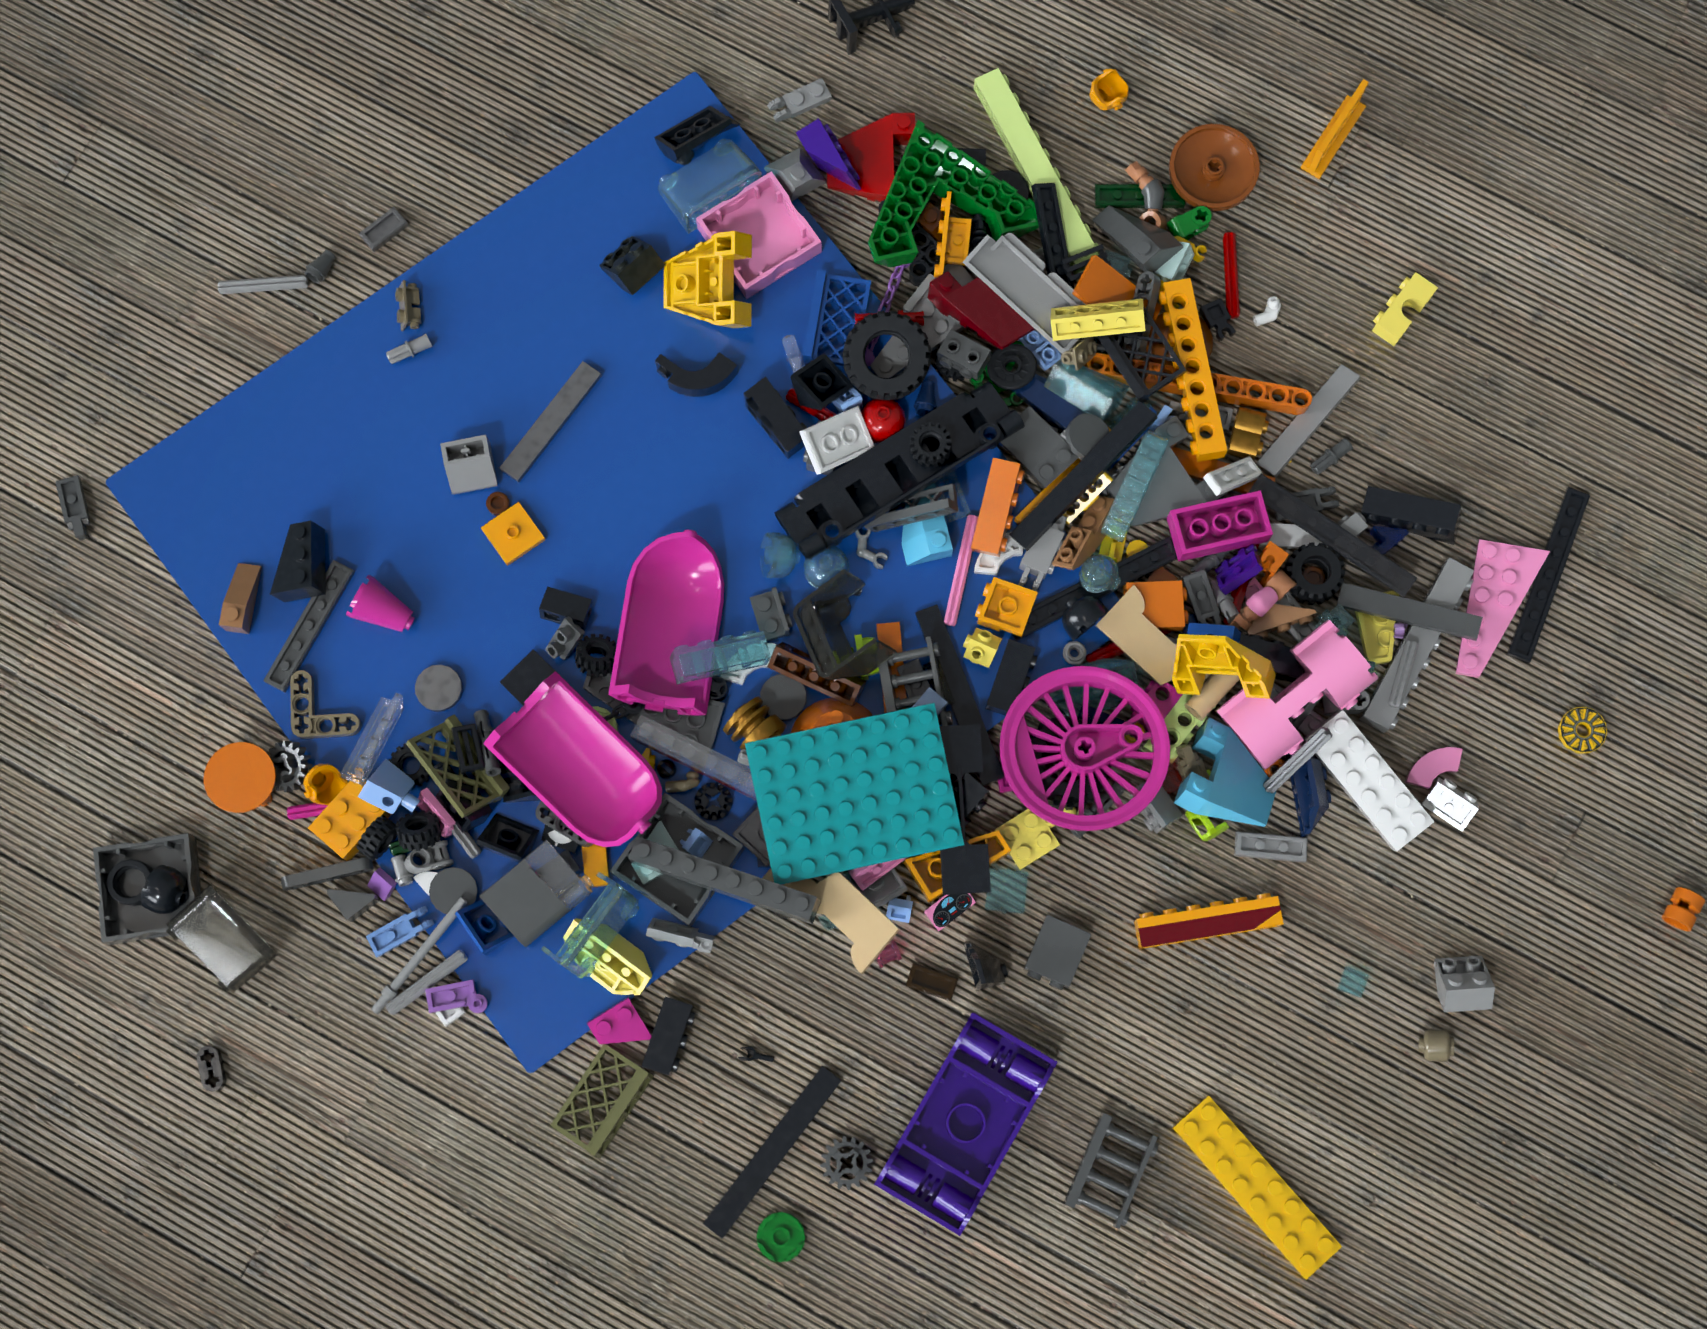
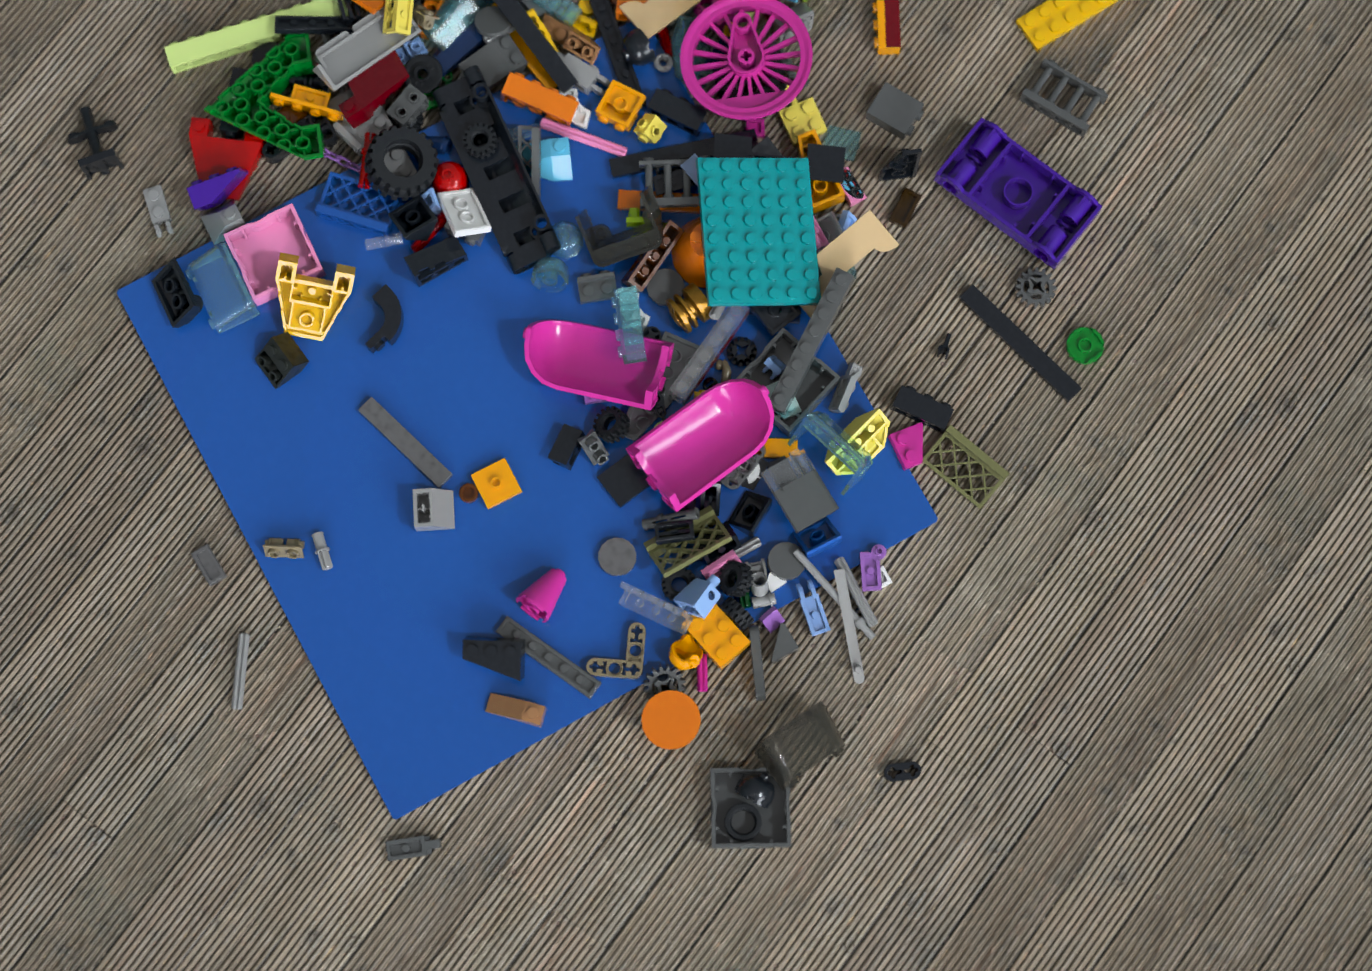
camera: 80 degrees left, 0 degrees up
(319, 268) = (234, 620): dark grey cone -> none
(329, 998) = (849, 626): none -> light grey piece
(864, 553) = (560, 205): light grey arm -> none
(1099, 574) = (605, 31): clear light blue cap -> none

